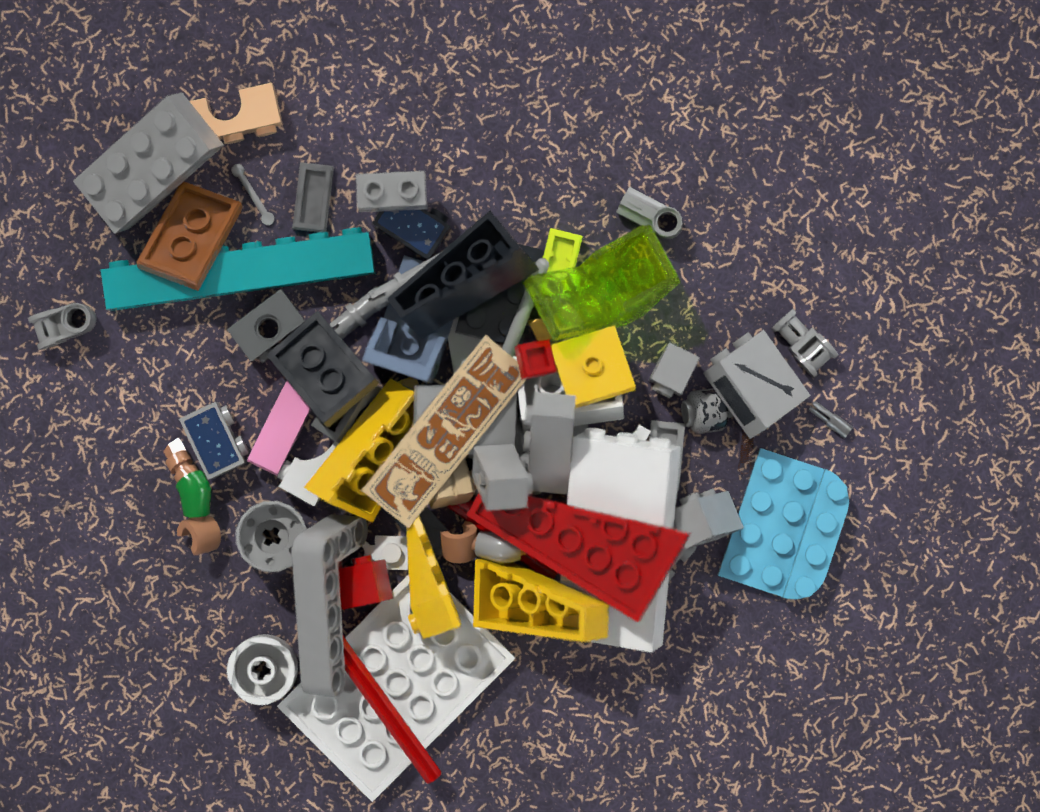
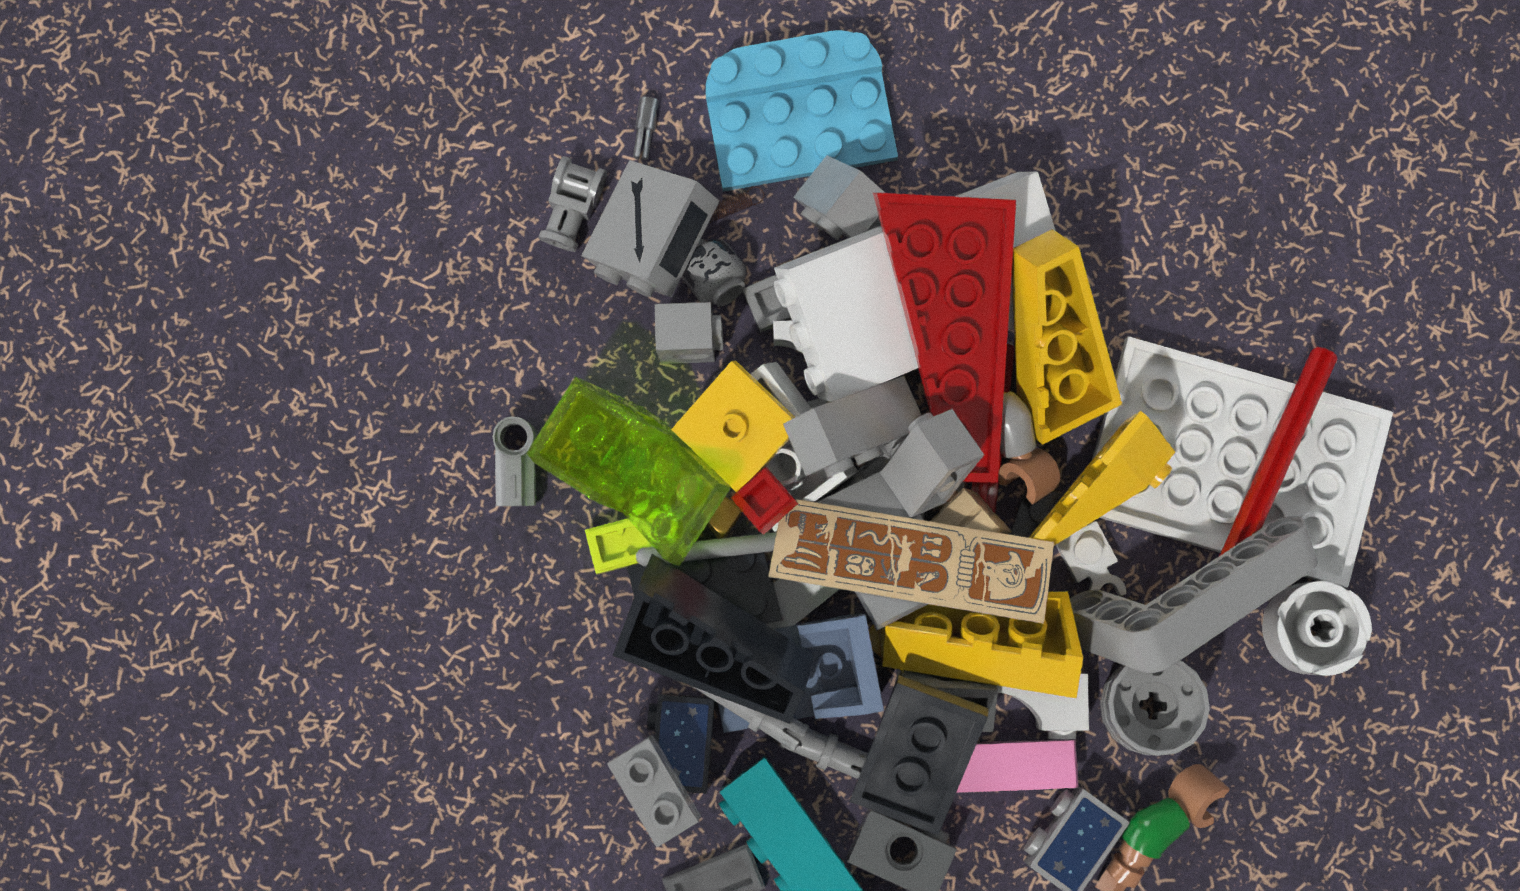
camera: 115 degrees left, 5 degrees down
(364, 582) = (1145, 562): red brick -> none

